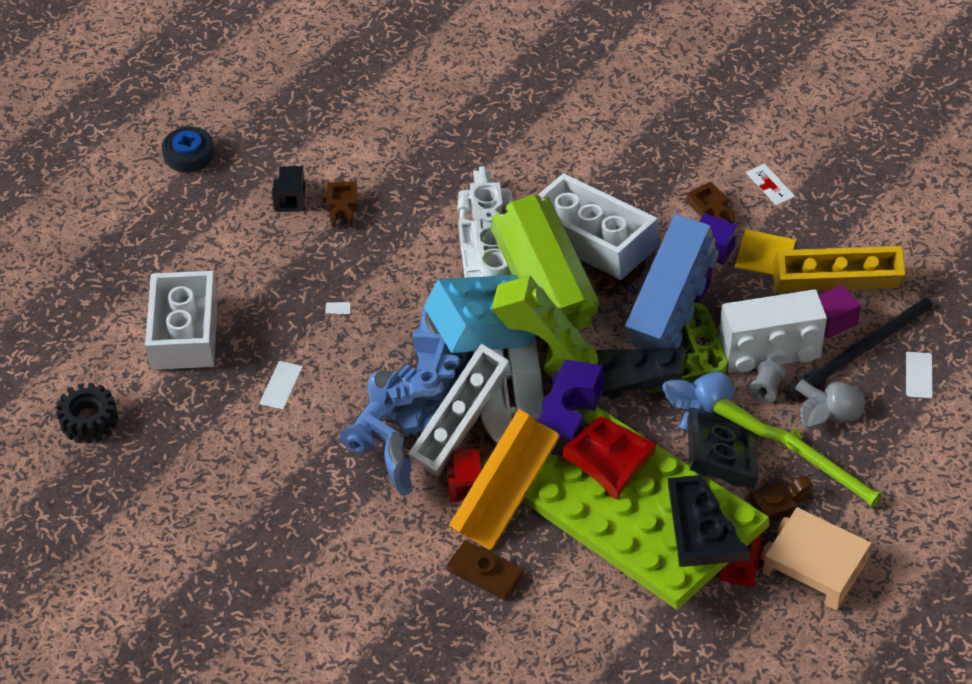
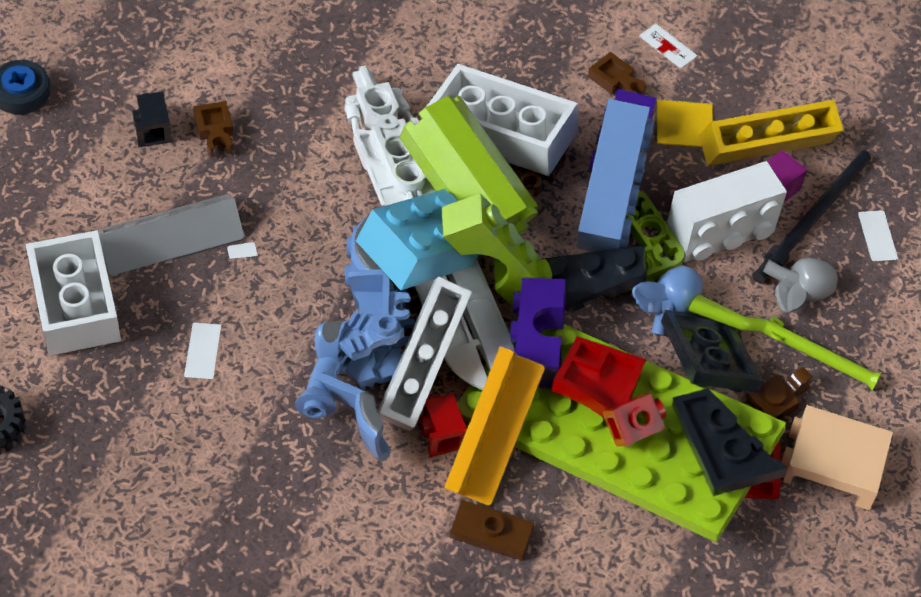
camera: 20 degrees left, 5 degrees up
(278, 286) = (170, 234): none -> light grey panel
(615, 493) = (623, 423): none -> red brick
(767, 381) = (731, 264): light grey bush -> none

